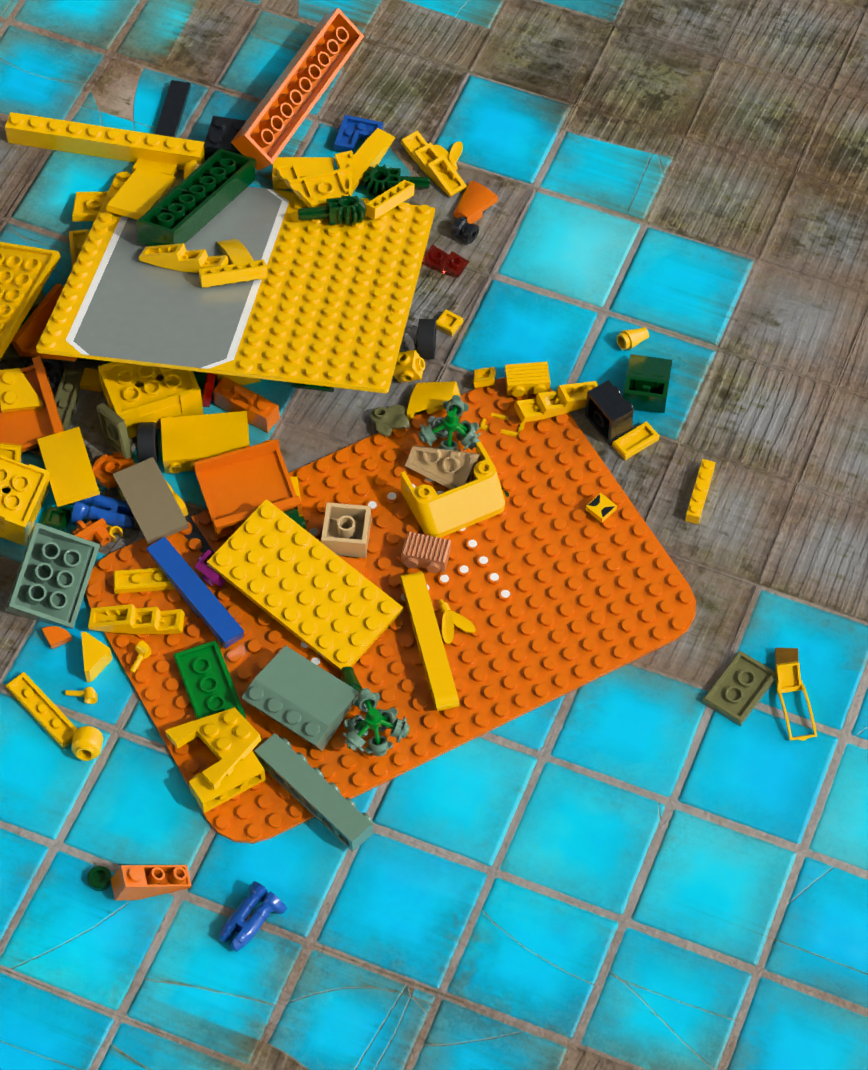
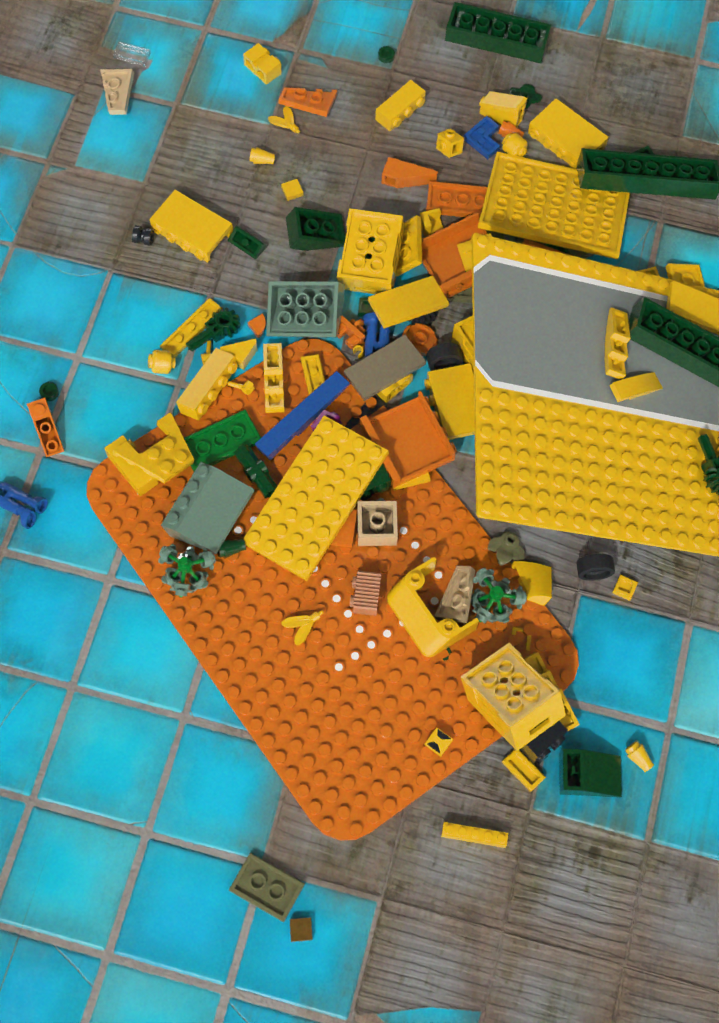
camera: 80 degrees right, 10 degrees up
(53, 680) = (215, 329): none -> dark green gear
(114, 430) = (446, 328): olive tile -> none
(131, 691) = (207, 384): none -> yellow brick
(232, 273) = (605, 381): yellow piece -> none
(257, 648) = (255, 470): none -> dark green piece
(314, 792) = (125, 532): sand green brick -> none
(409, 366) = (563, 555): yellow brick -> none
(429, 641) = (278, 606): yellow beam -> none
(448, 264) = (693, 576): clear red slope -> none
(484, 377) = (567, 624): yellow tile -> none
(527, 378) = (567, 660): yellow brick -> none
(577, 430) = (508, 713): none -> yellow container
(788, 681) = (278, 933): yellow piece -> none

